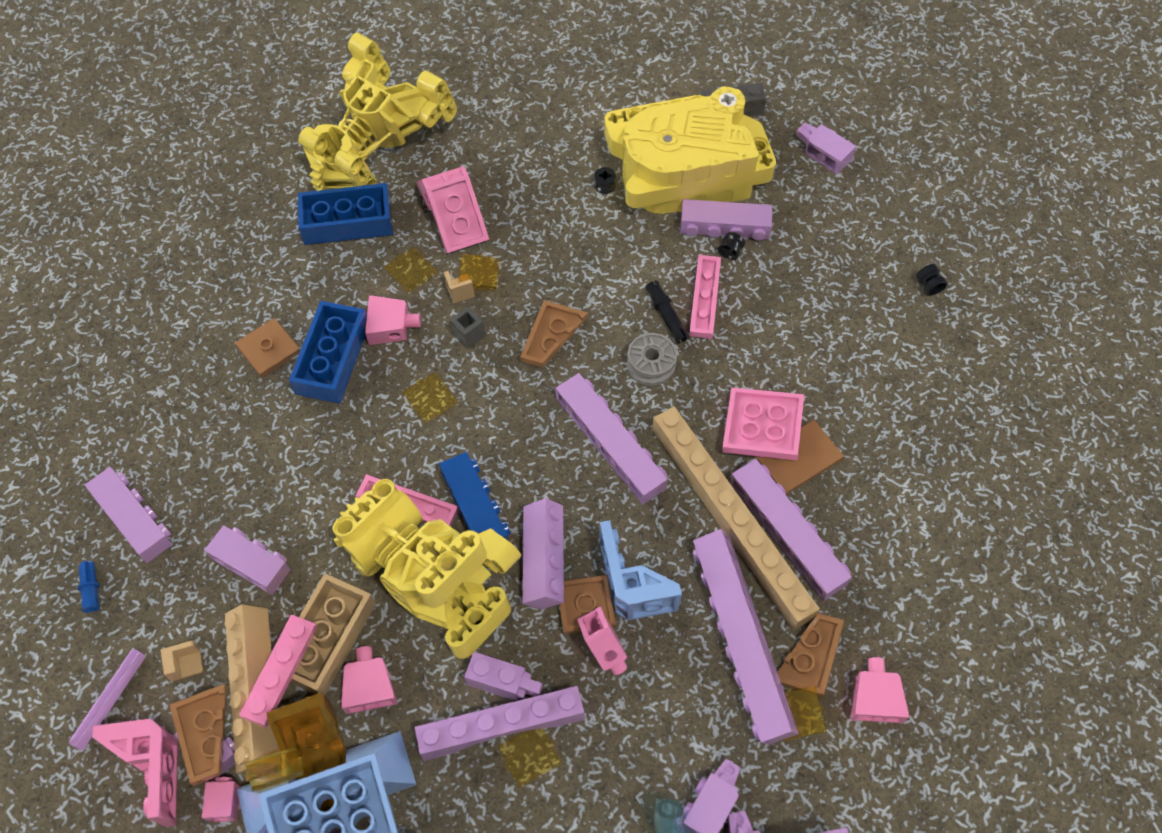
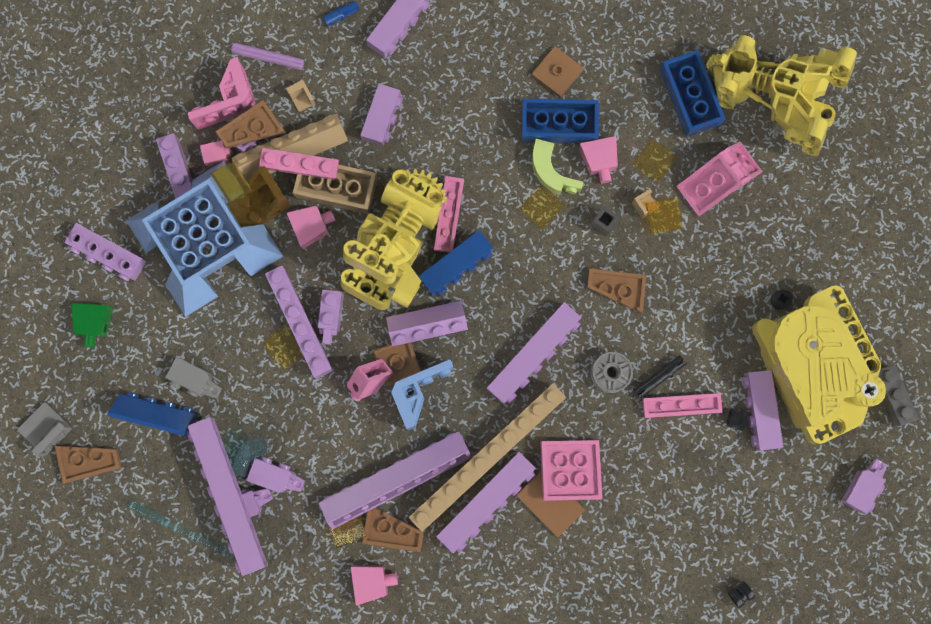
camera: 80 degrees right, 20 degrees up
(387, 381) = (547, 175): none -> yellowish green arch

